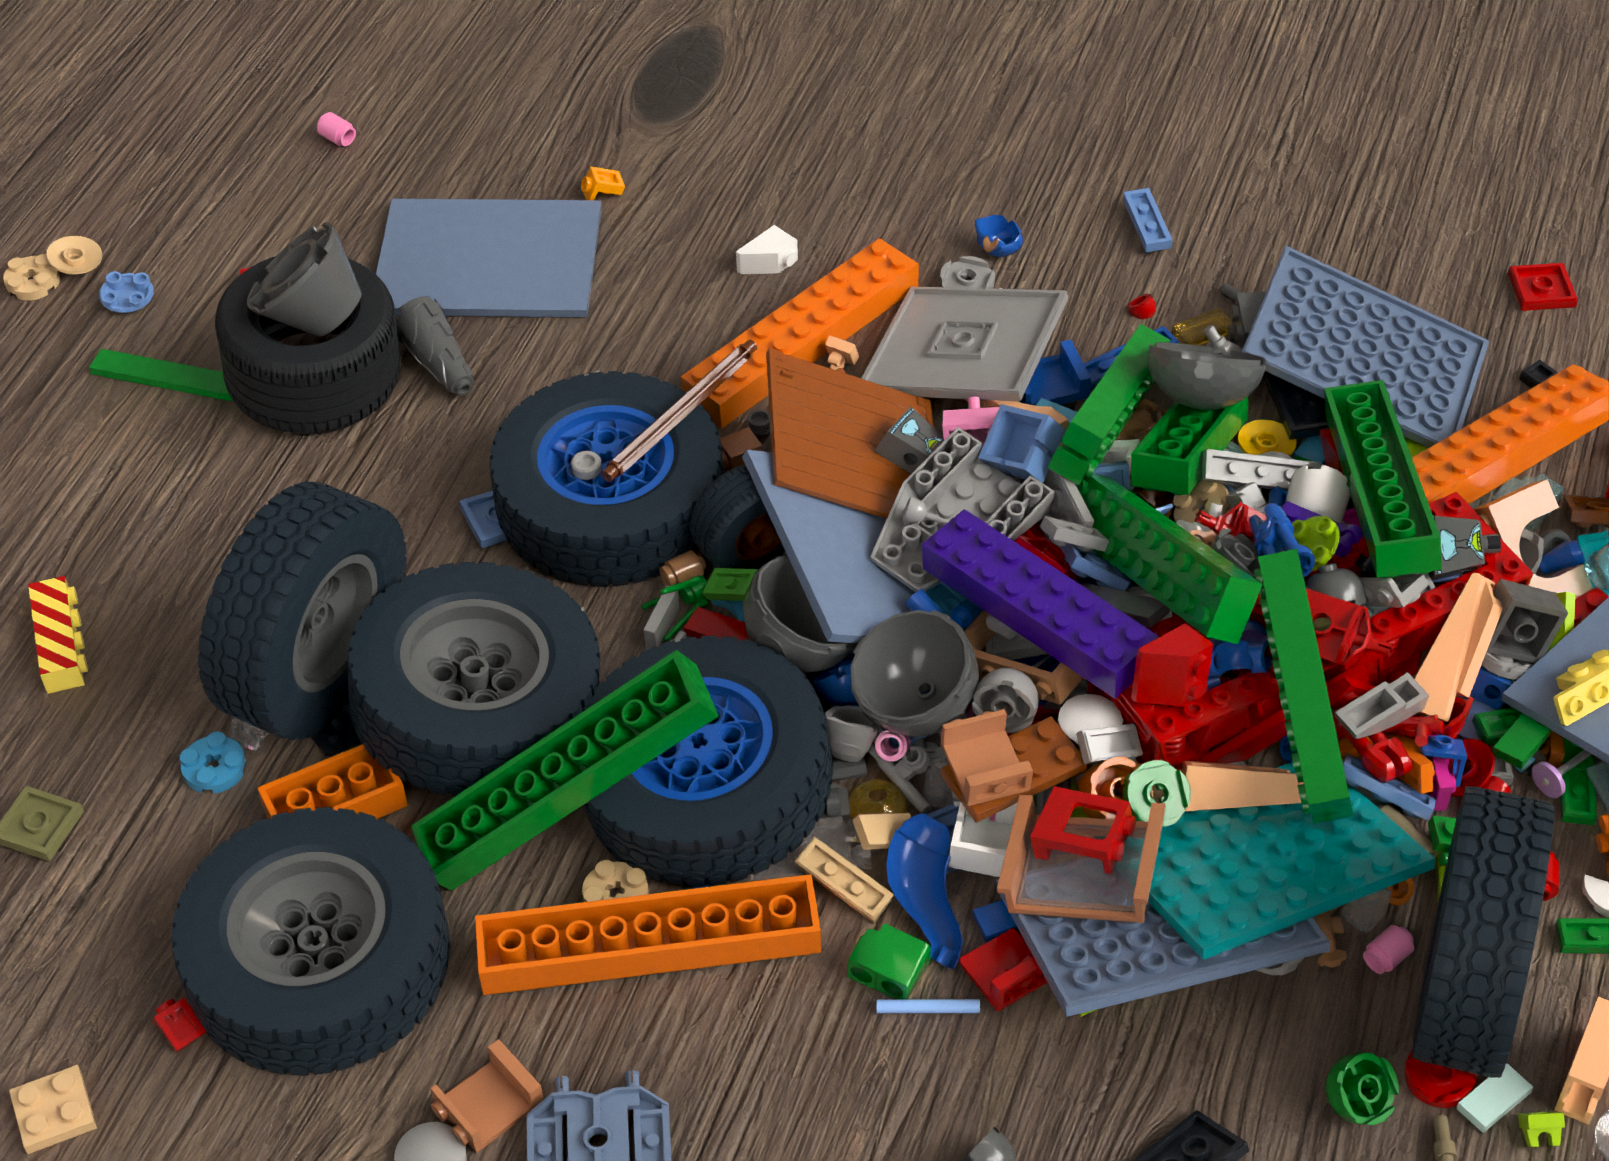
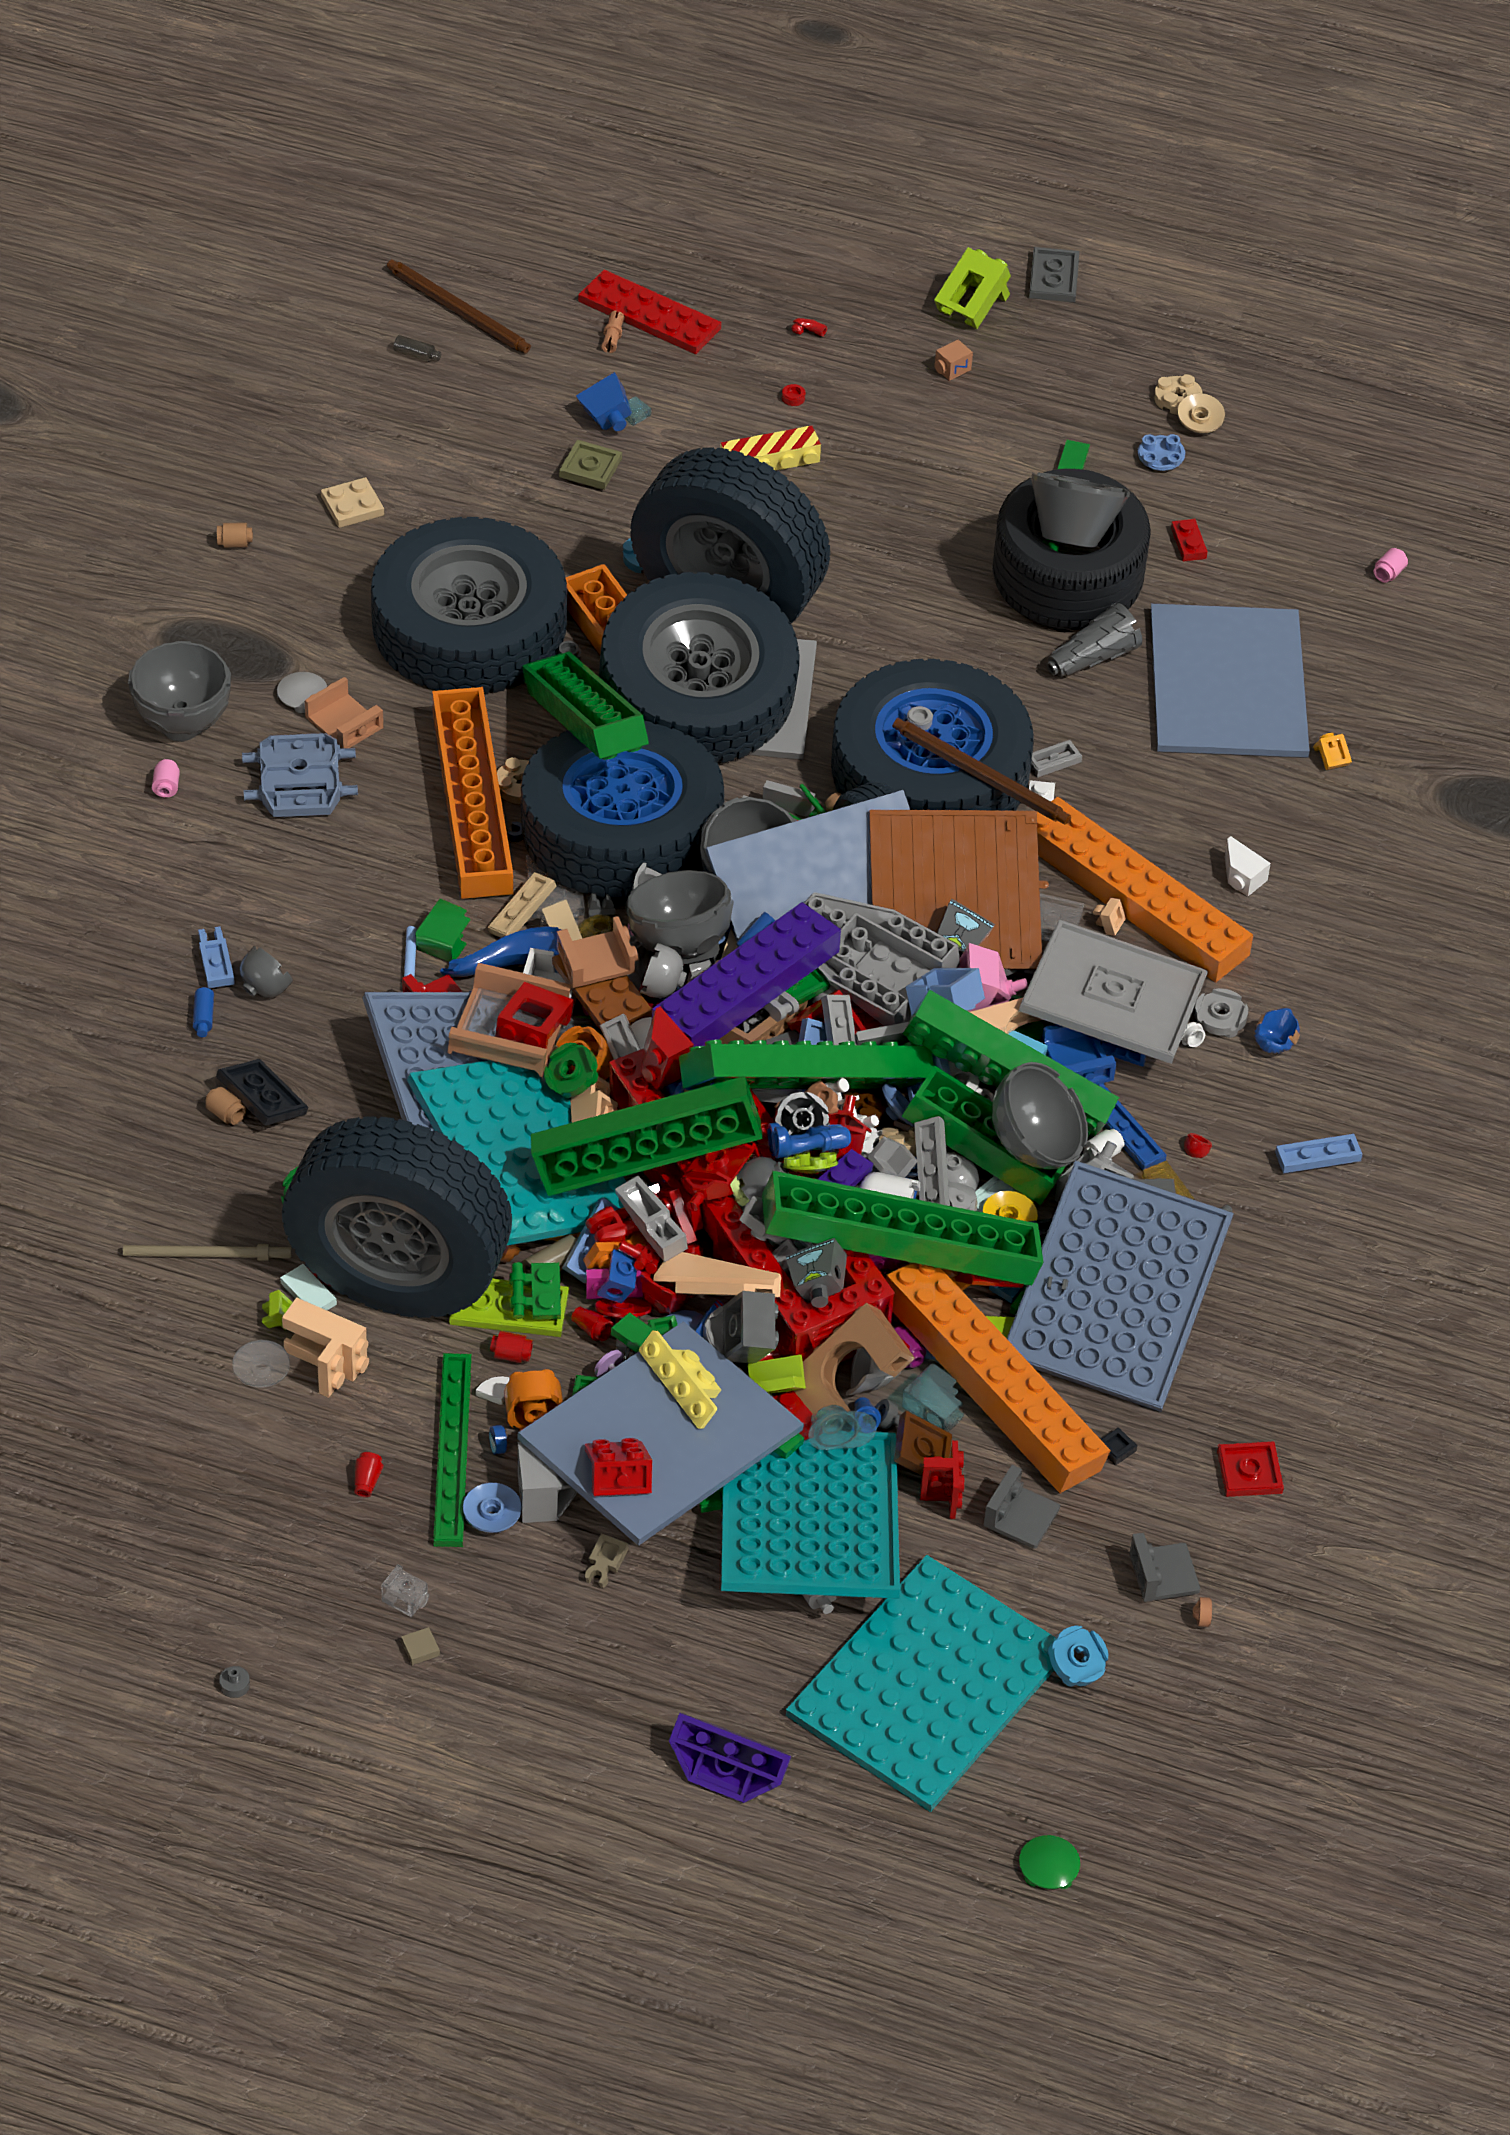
camera: 85 degrees right, 0 degrees up
(916, 511) = (856, 913): light grey hinge -> none

